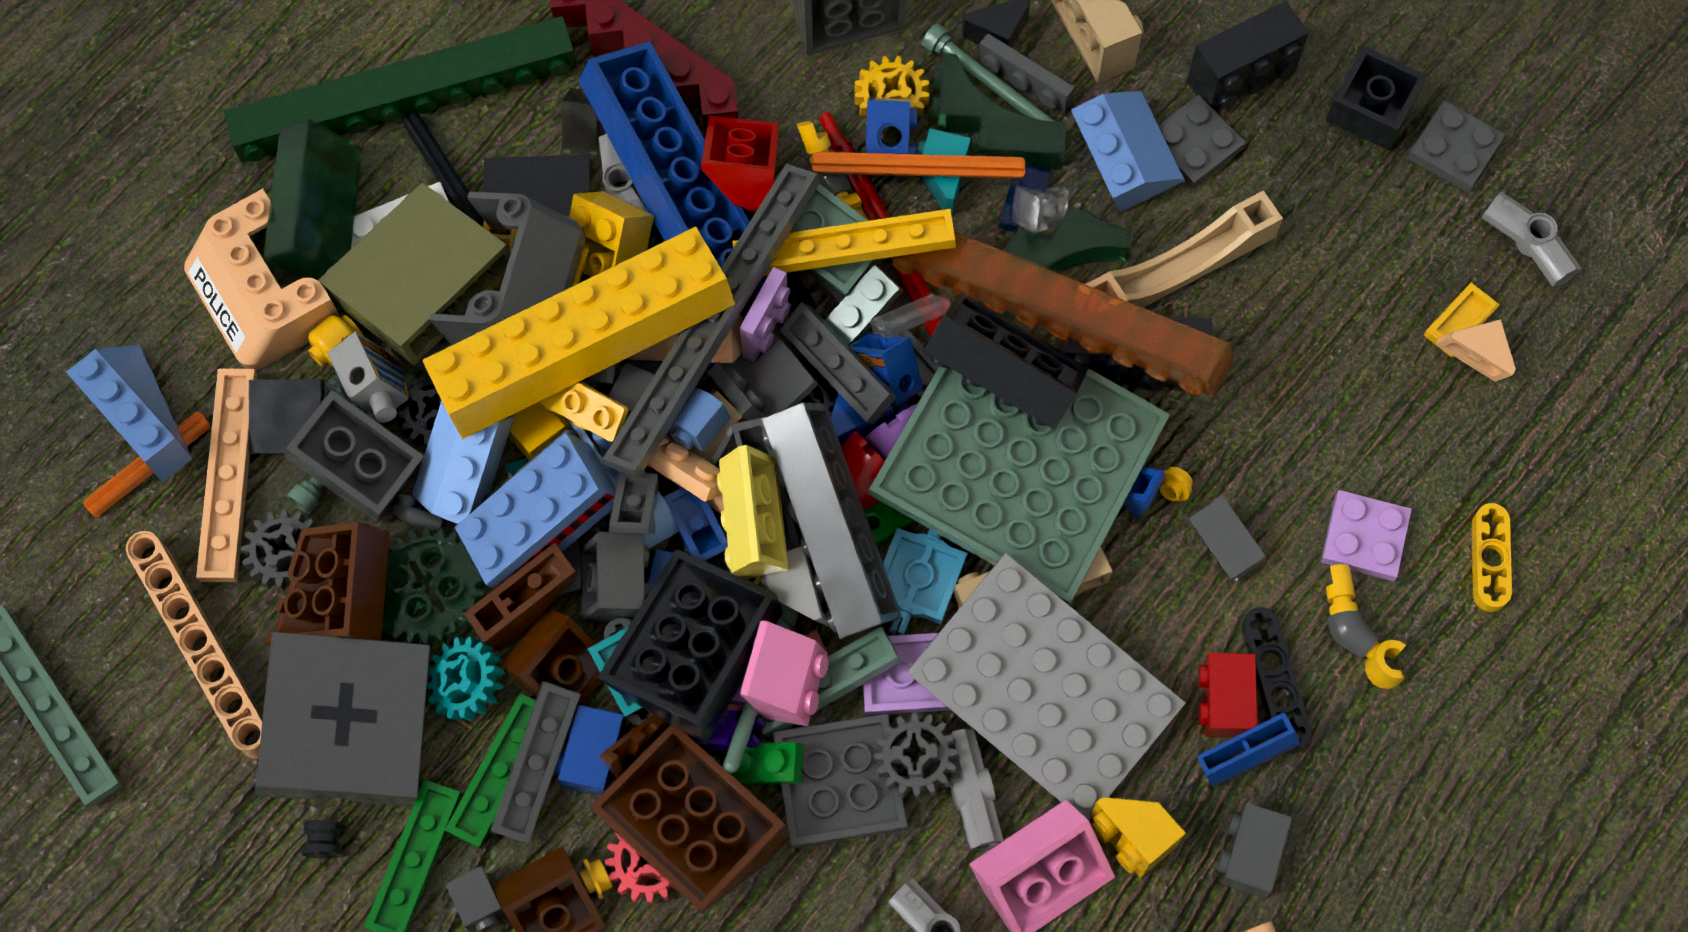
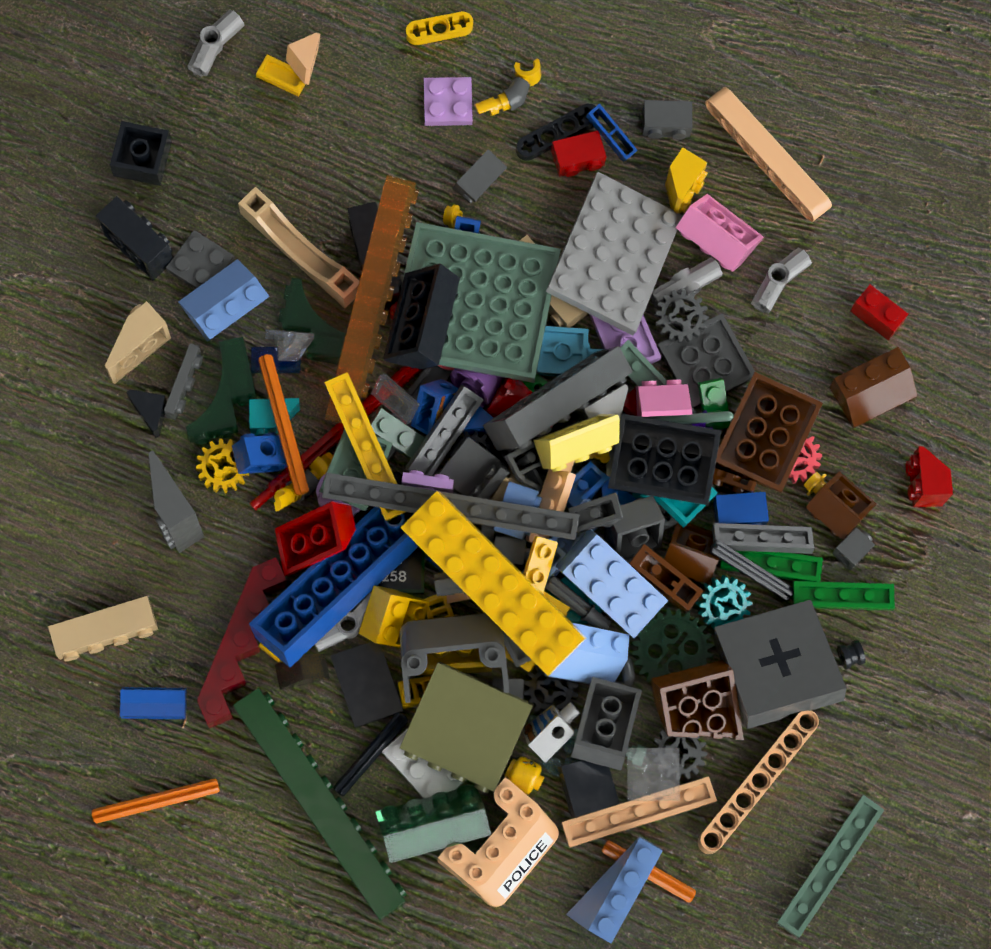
camera: 115 degrees left, 5 degrees up
(261, 497) = (653, 774): none -> clear plate
(494, 728) = (751, 570): none -> axle
(939, 41) = (171, 447): sand green piece -> none
(1456, 146) = (156, 102): dark grey plate -> none

